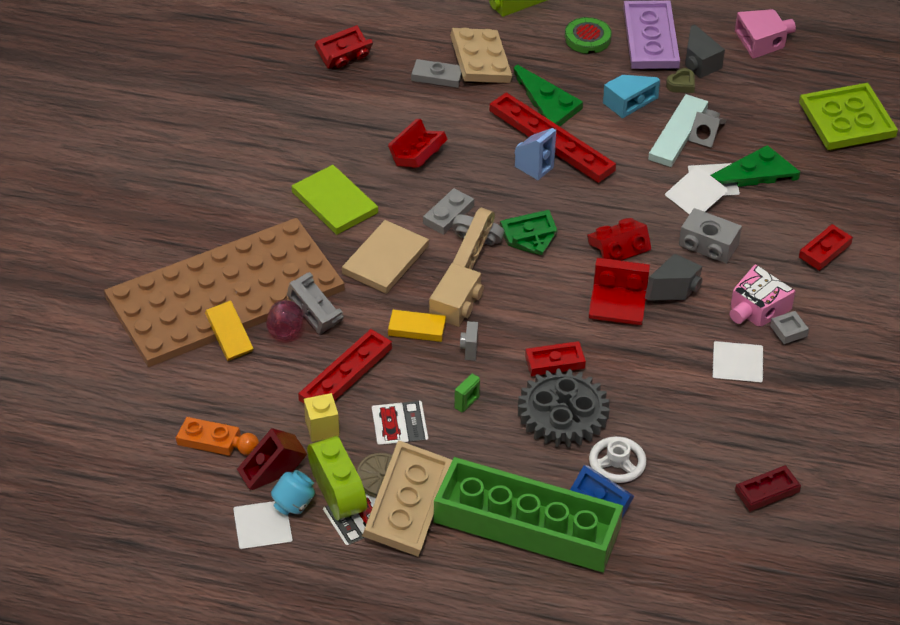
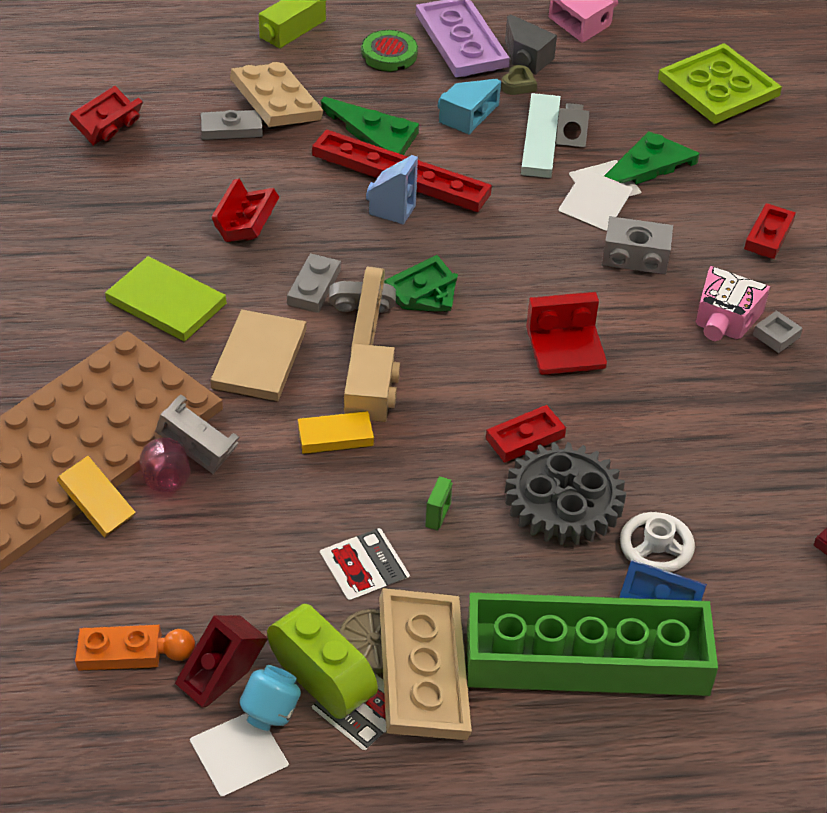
camera: 20 degrees left, 0 degrees up
(321, 417) = (265, 582): light yellow brick -> none
(348, 366) = (269, 514): red plate -> none
(469, 340) = (413, 435): light grey plate -> none
(621, 240) = (536, 272): red bracket -> none
(674, 280) = (625, 304): dark grey slope -> none
(738, 361) = (735, 386): white sticker -> none

